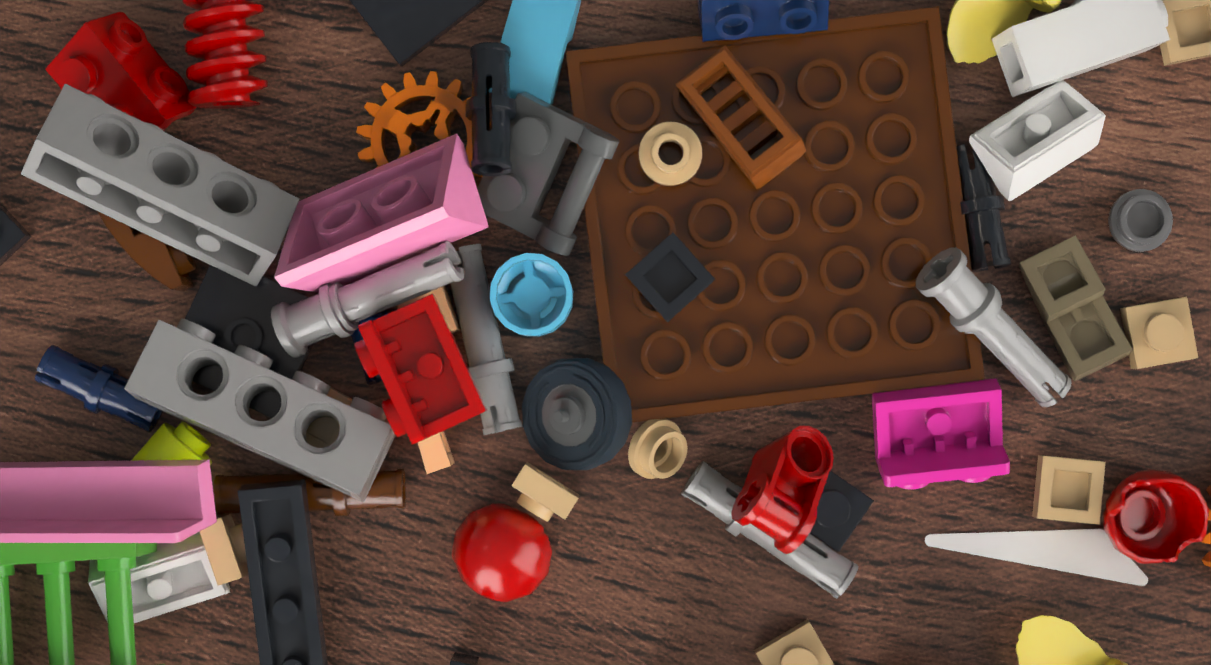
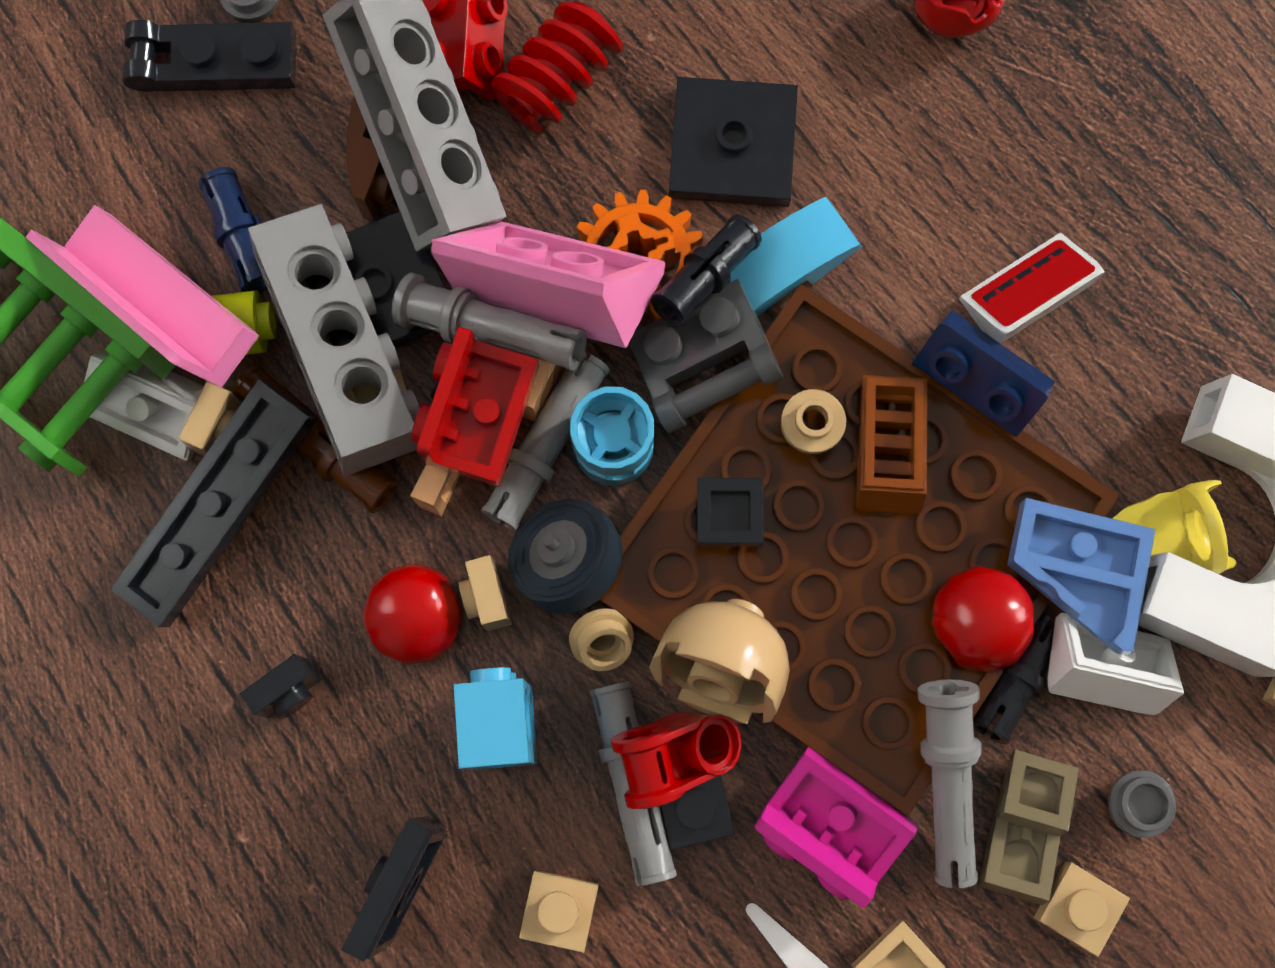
camera: 45 degrees right, 10 degrees down
(639, 579) = (495, 721): none -> medium azure brick
(762, 389) = (724, 660): none -> tan cylinder
(918, 191) = (983, 619): none -> red hair
(959, 88) = (1085, 567): none -> medium blue wing

